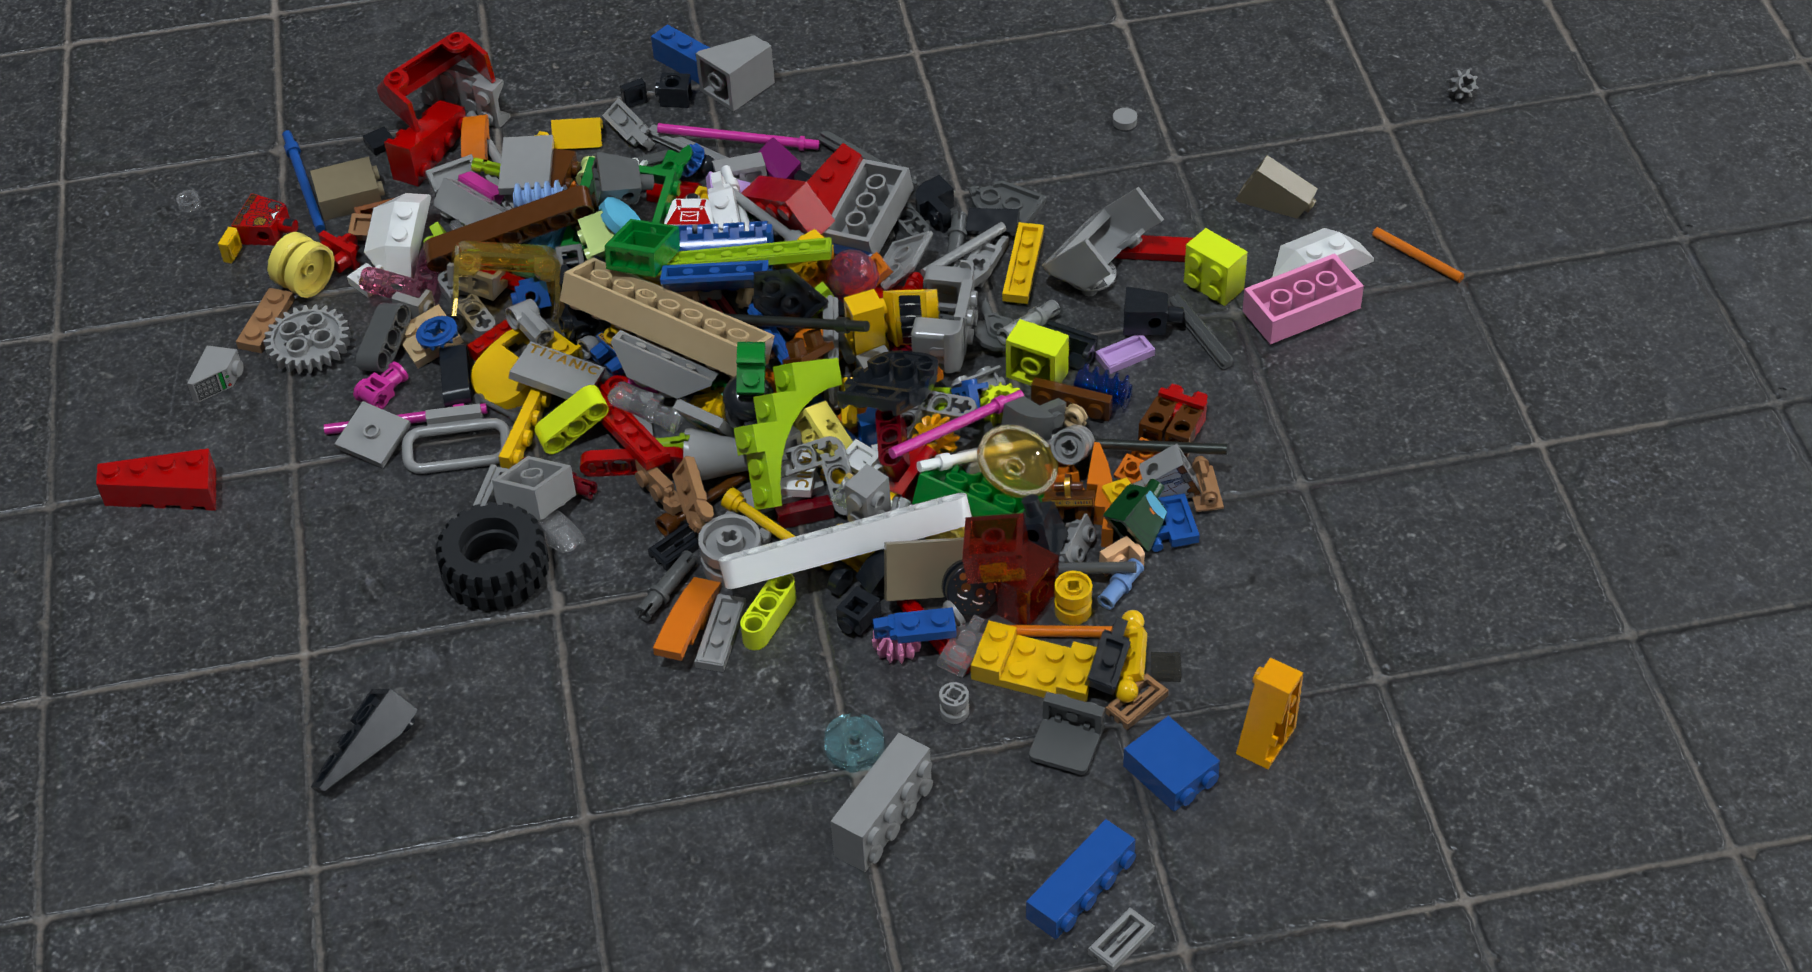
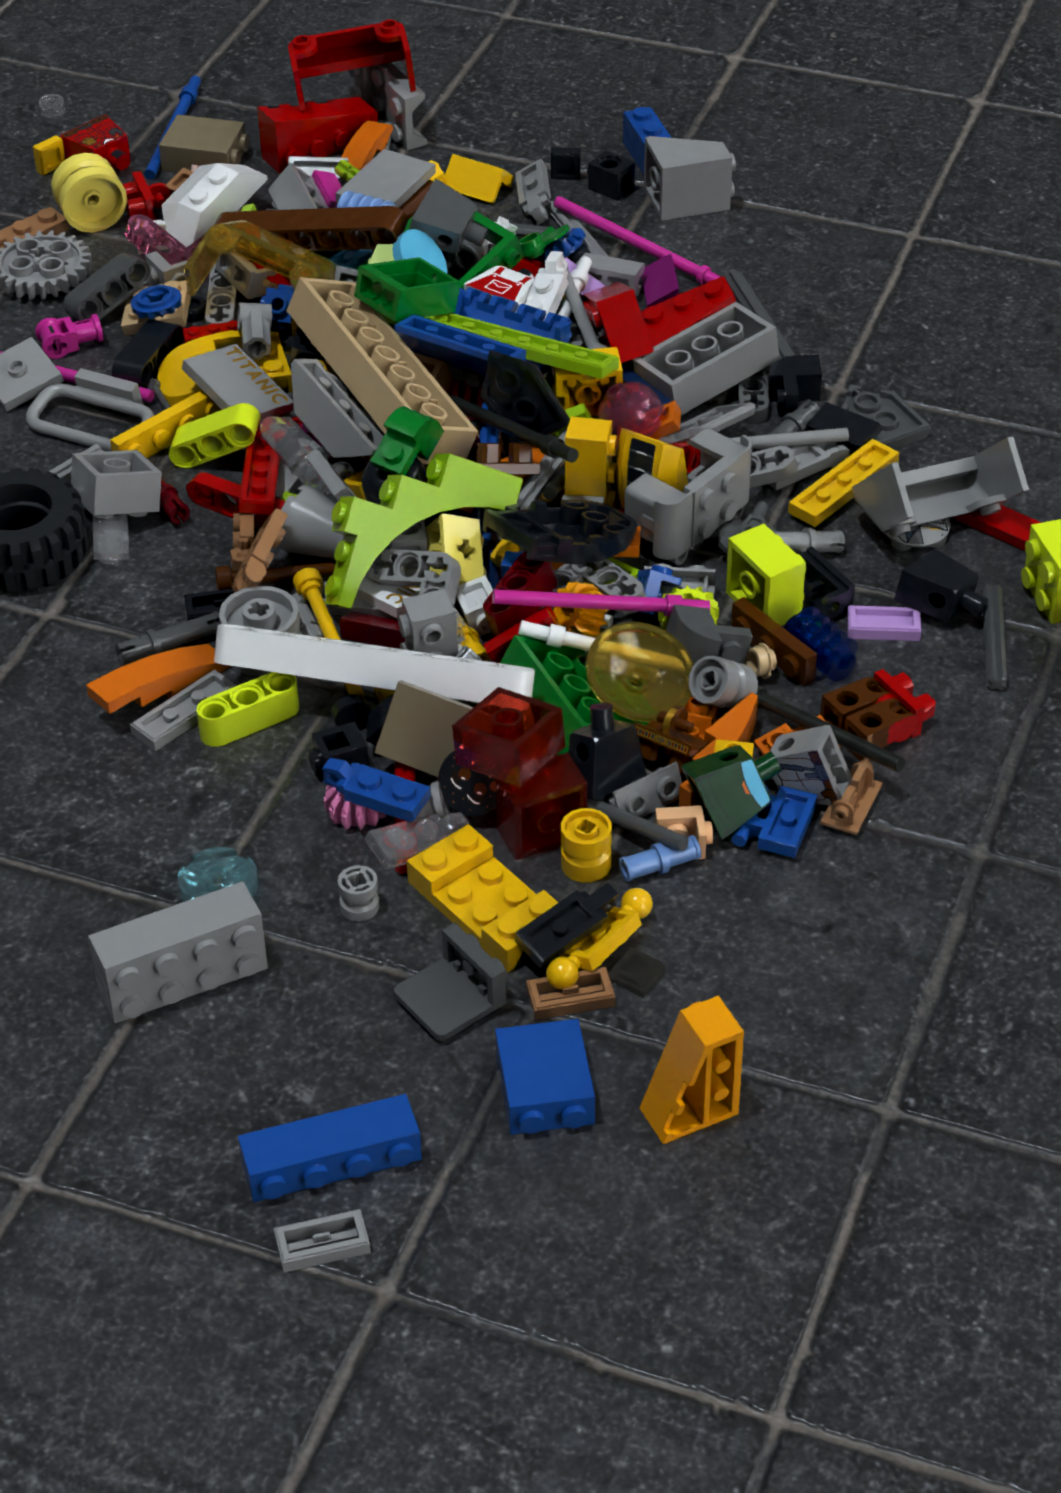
camera: 30 degrees right, 5 degrees down
(1060, 631) = (539, 872): orange bar -> none

